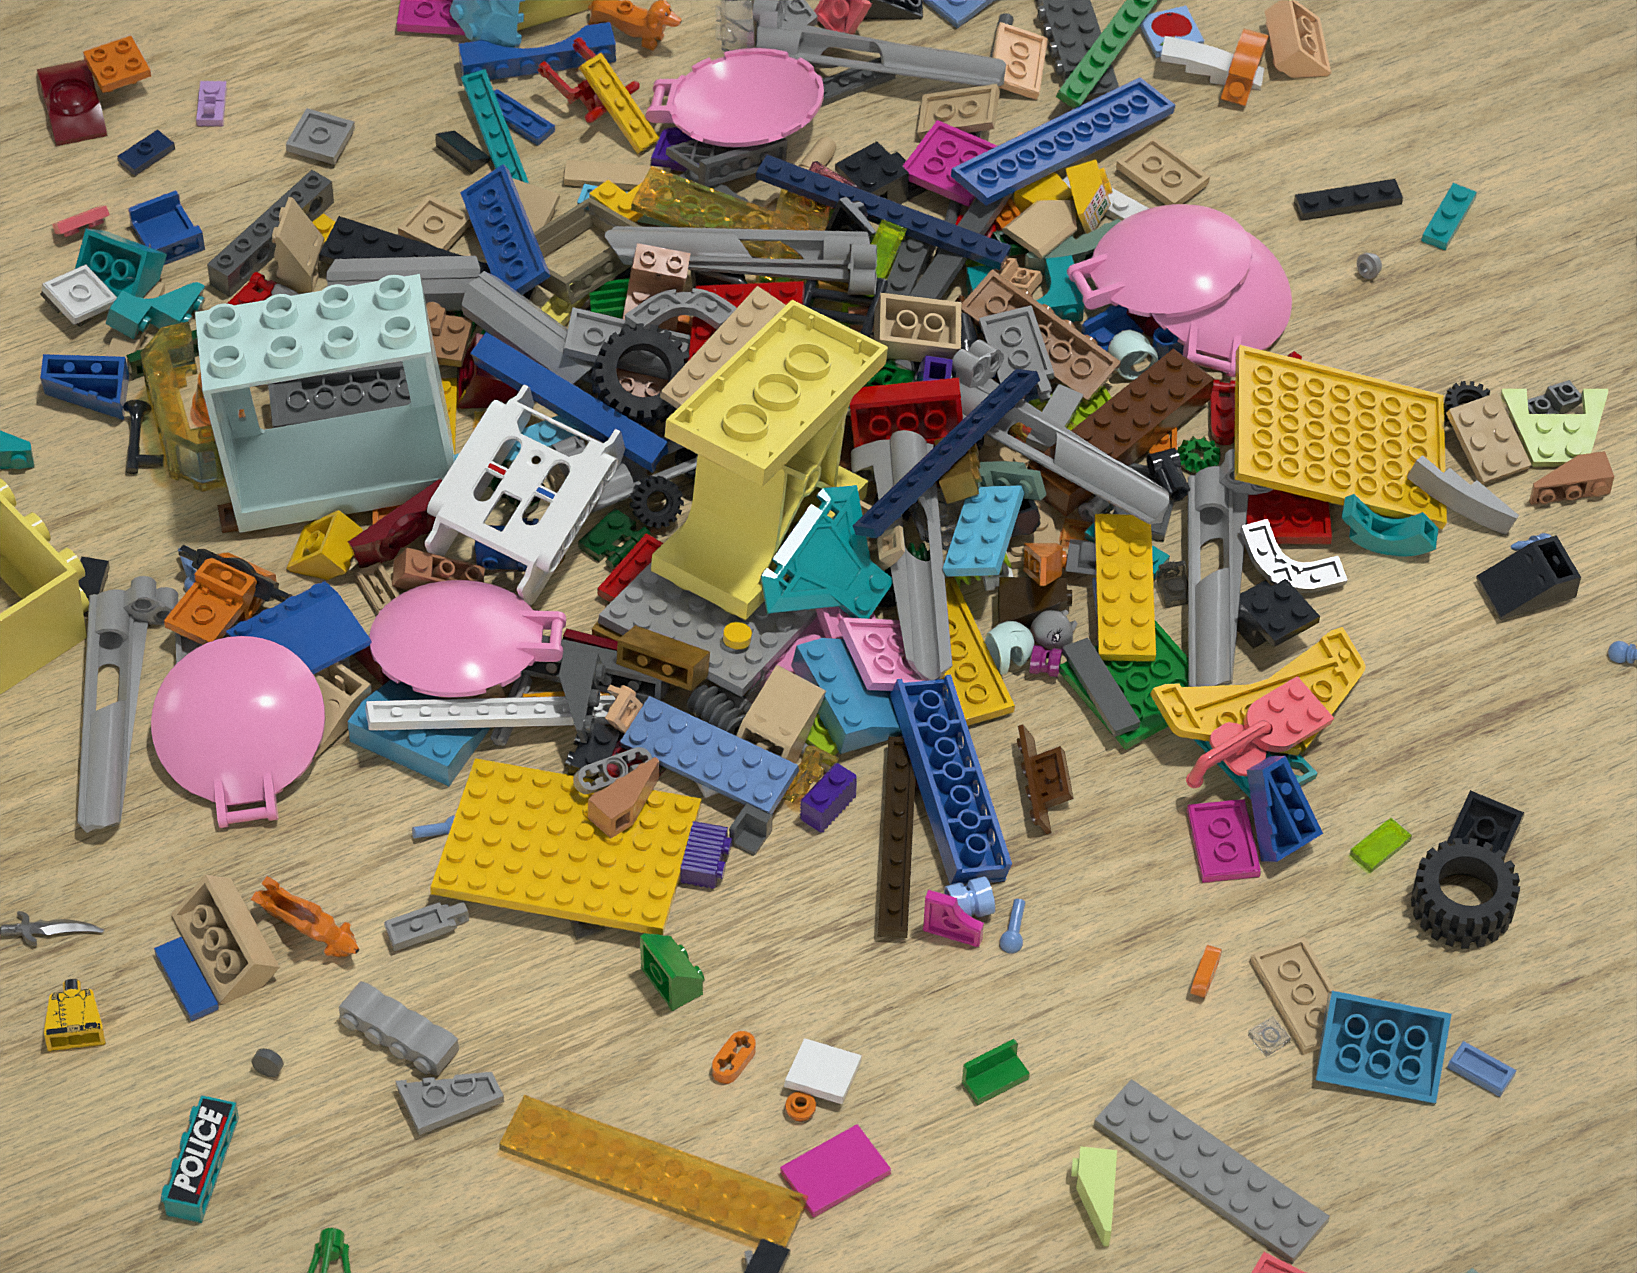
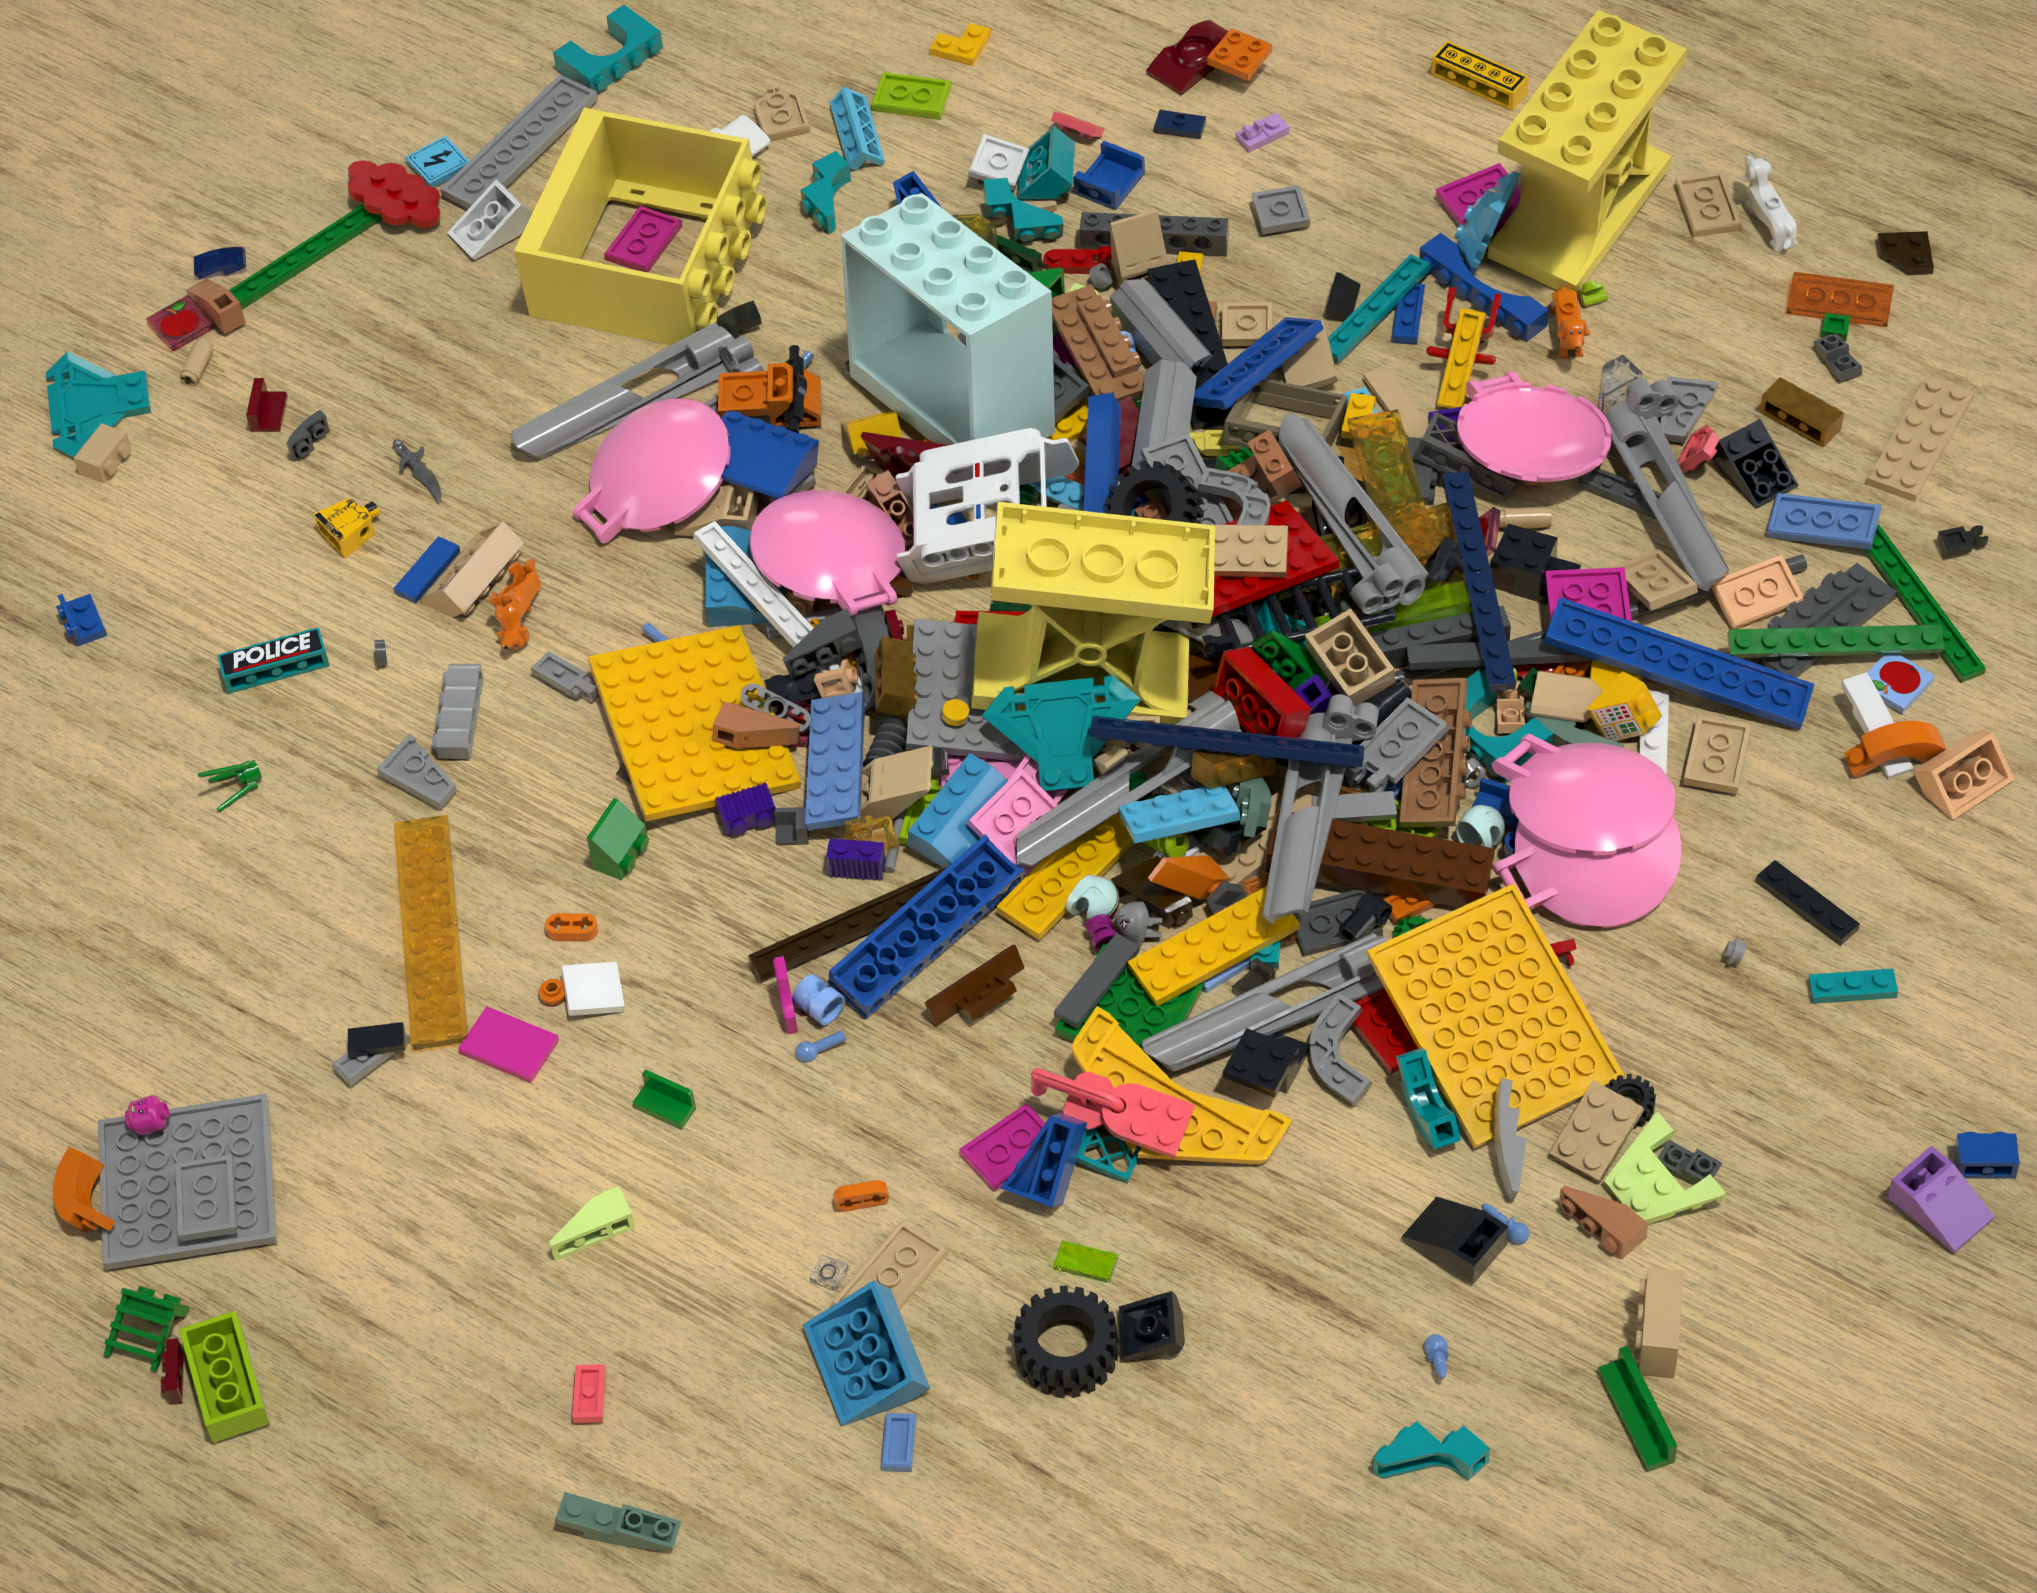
camera: 65 degrees right, 0 degrees up
(1212, 1171) = (668, 1296): light grey plate -> none

